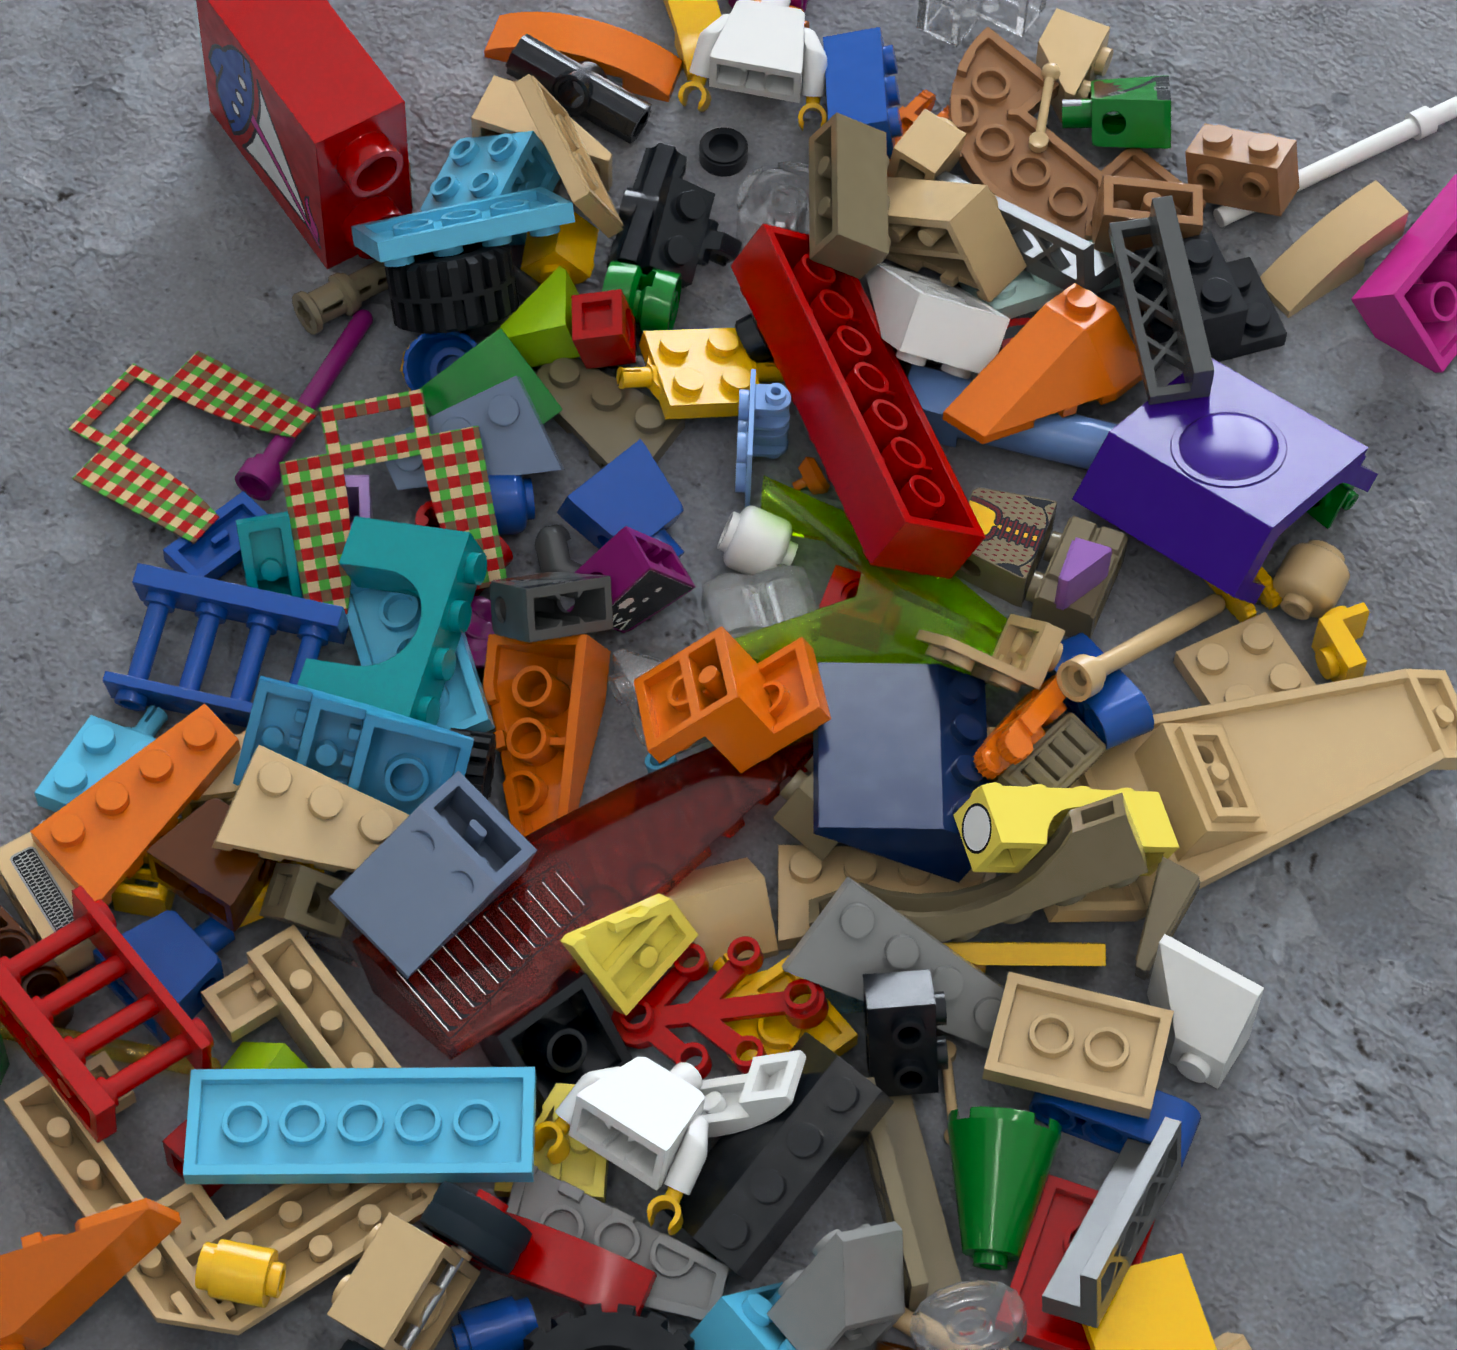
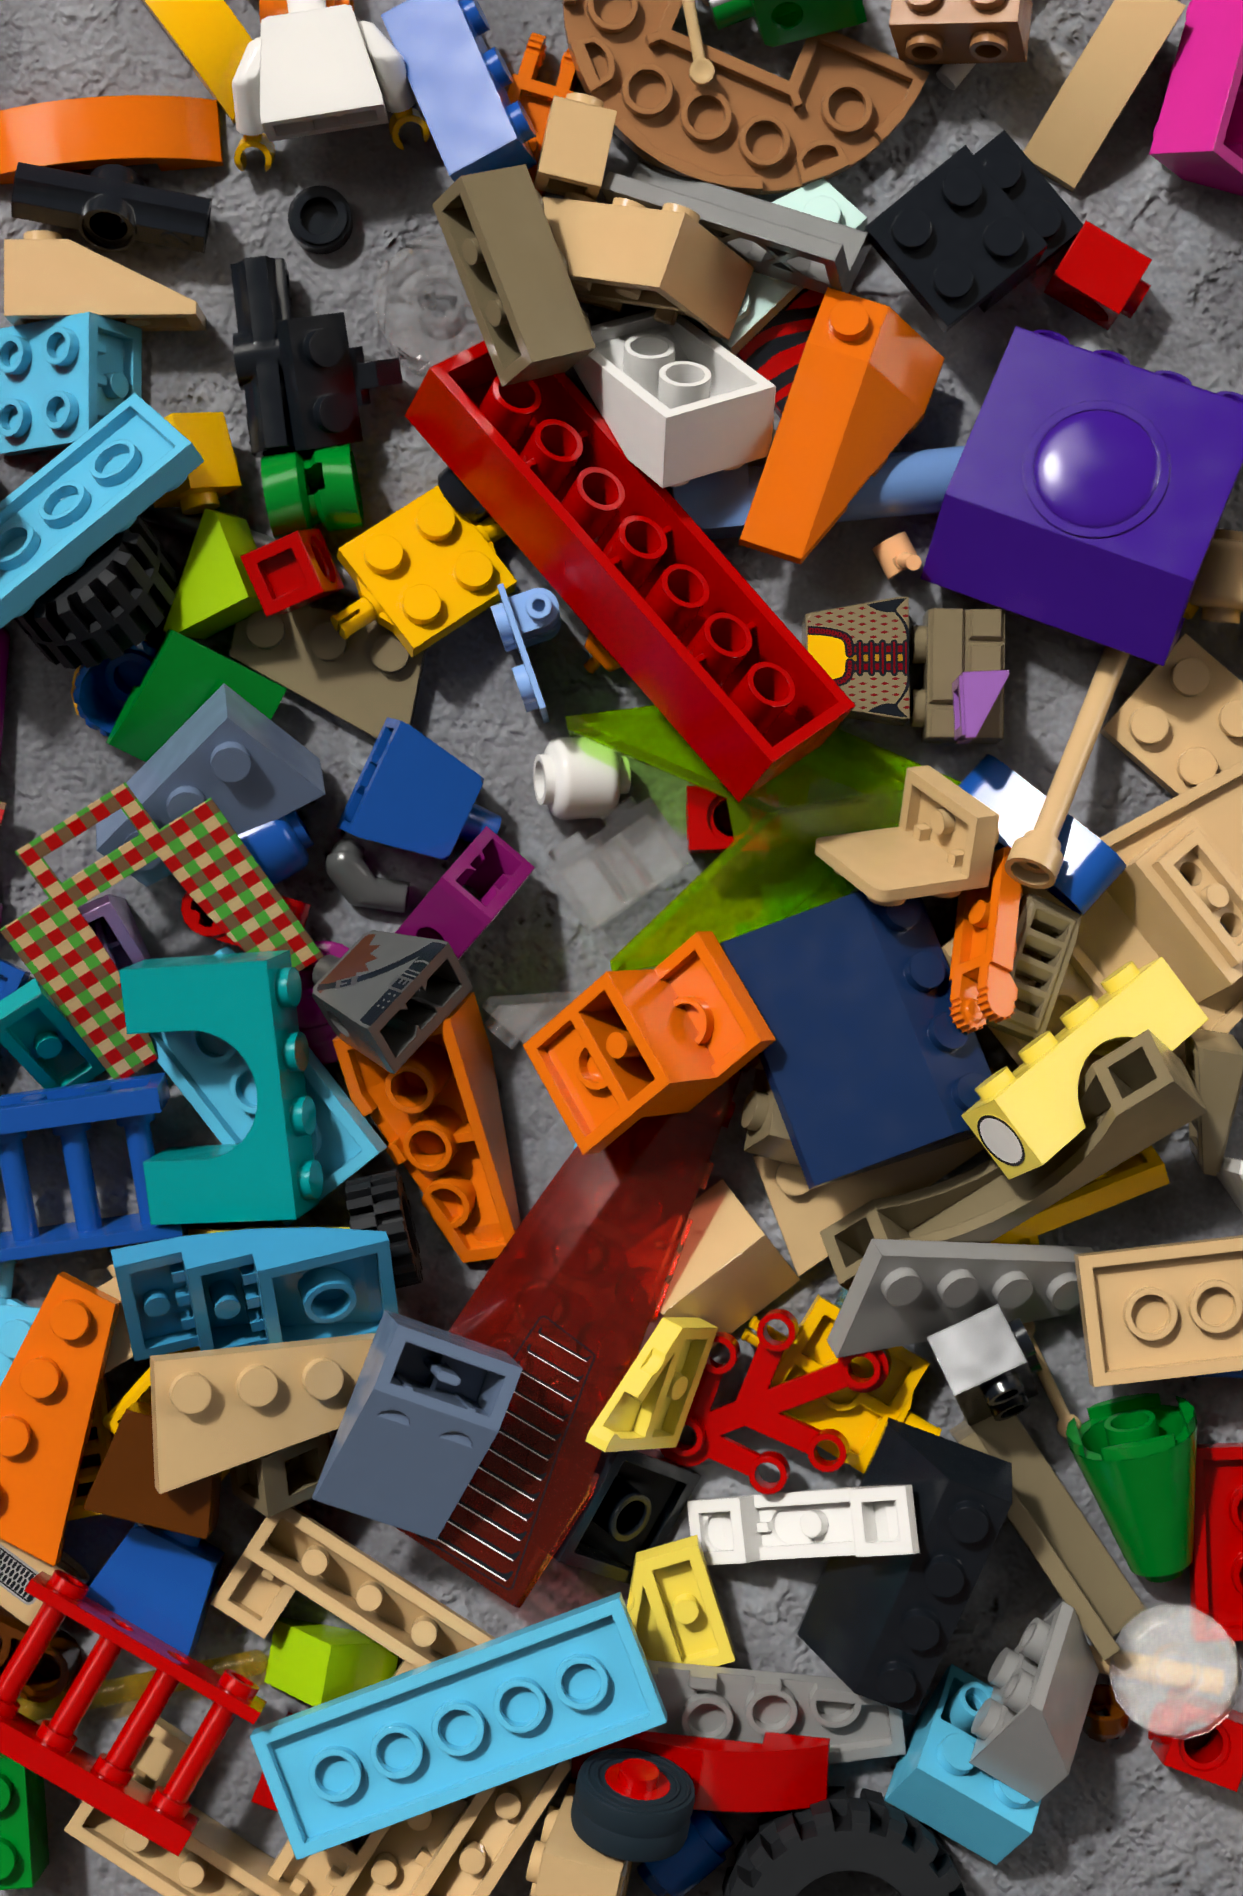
camera: 15 degrees left, 30 degrees up
(569, 155) = (152, 353): tan tile -> none
(642, 1123) = (754, 1600): white torso -> none
(1061, 485) = (897, 555): none -> light nougat hand
(1131, 199) = (878, 146): medium nougat brick -> none
(1181, 300) = (972, 280): dark grey fence -> none
(1285, 362) = (1100, 277): none -> red brick

